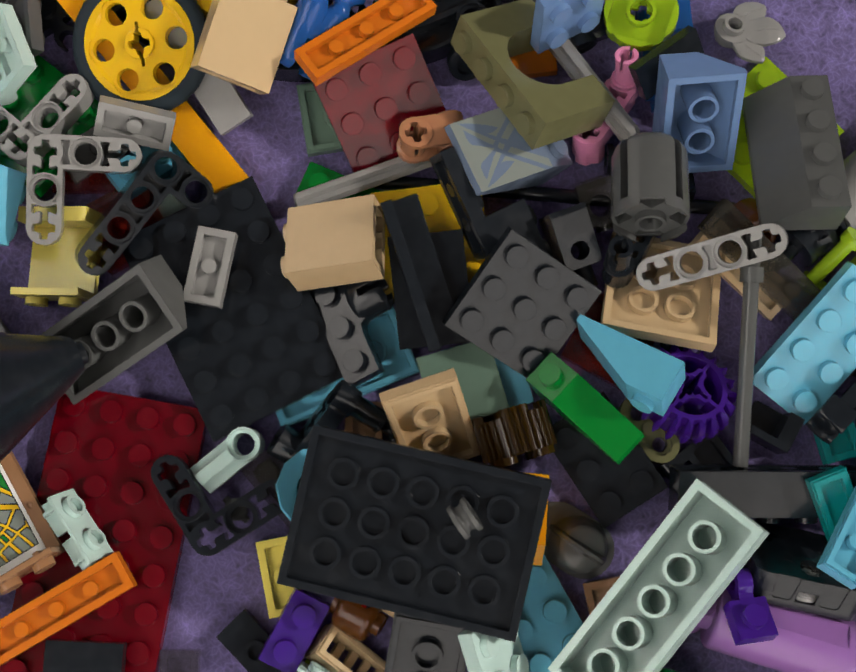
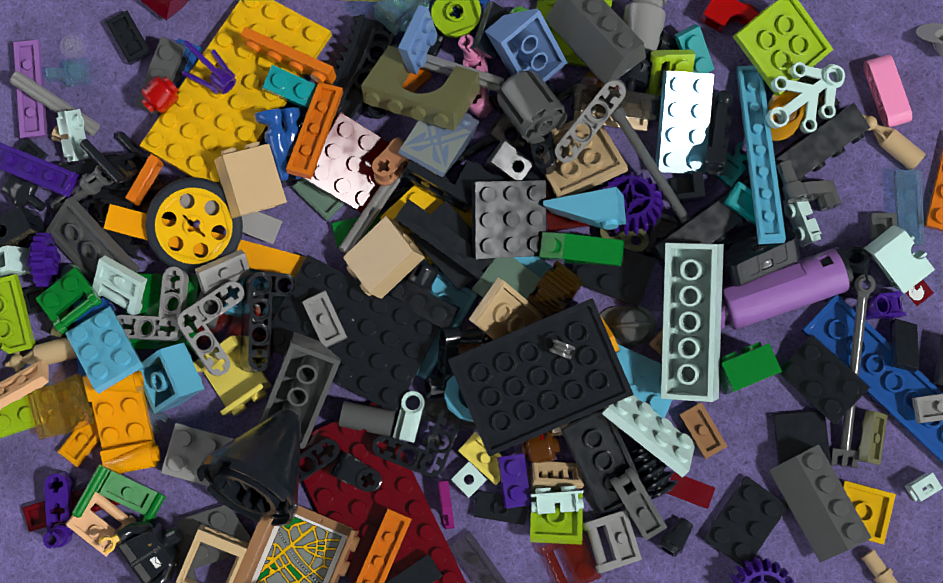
camera: 35 degrees left, 0 degrees up
(69, 514) = (346, 508): light aqua hinge -> none
(89, 437) = (326, 458): none -> black beam
(108, 475) = (352, 471): none -> black piece
(173, 423) = (366, 417): none -> dark grey pin
(195, 594) = (446, 505): none -> magenta tile
(256, 590) = (458, 479): none -> light aqua piece
(748, 615) = (743, 294): dark purple plate -> none

